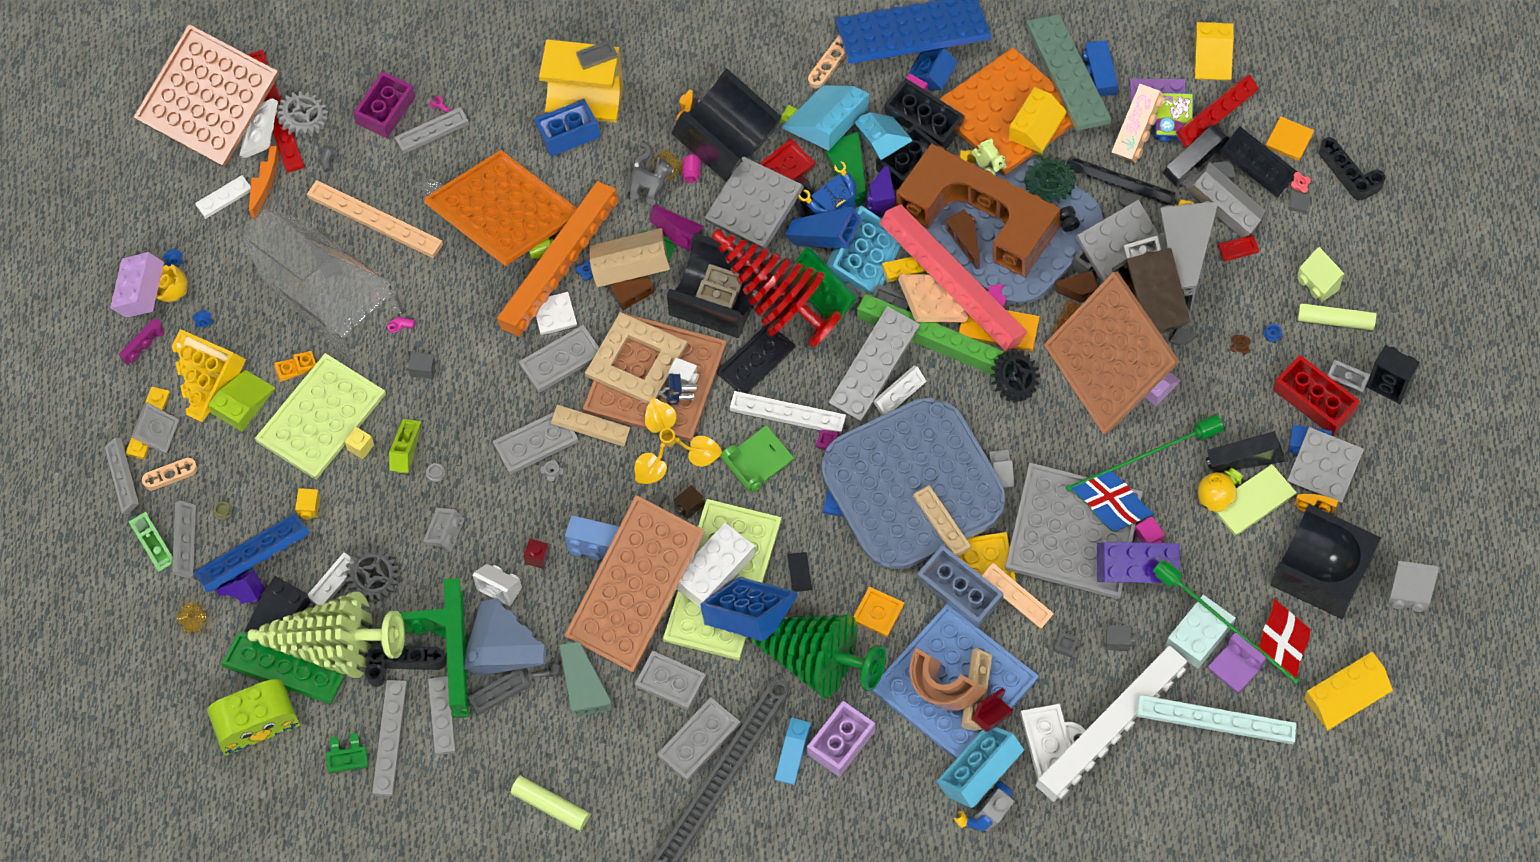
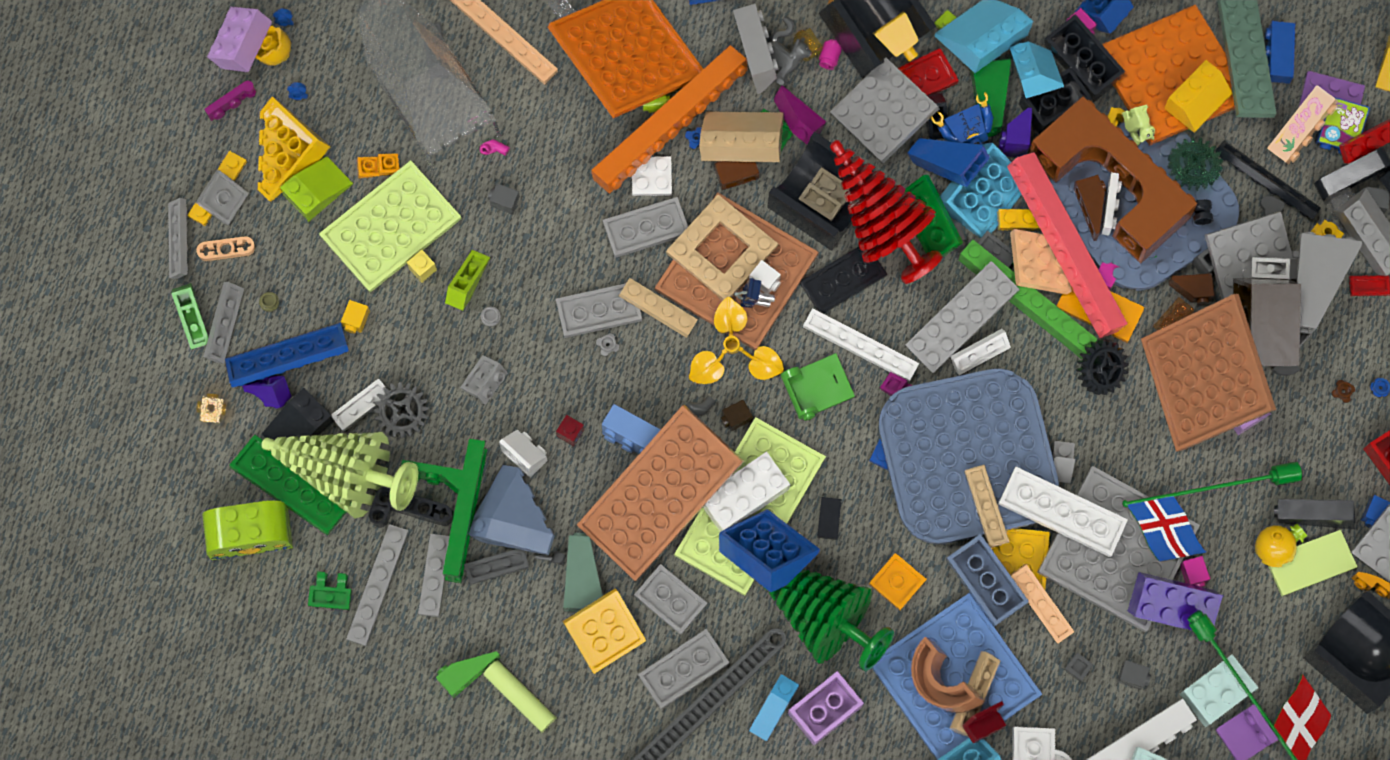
camera: 10 degrees right, 10 degrees up
(491, 795) = (463, 673): none -> bright green slope
(615, 722) = (604, 631): none -> yellow plate
(621, 175) = (756, 47): none -> light grey slope
(750, 135) = (899, 36): none -> yellow torso
(983, 232) = (1112, 204): none -> white plate
(1013, 507) = (1063, 511): none -> white plate

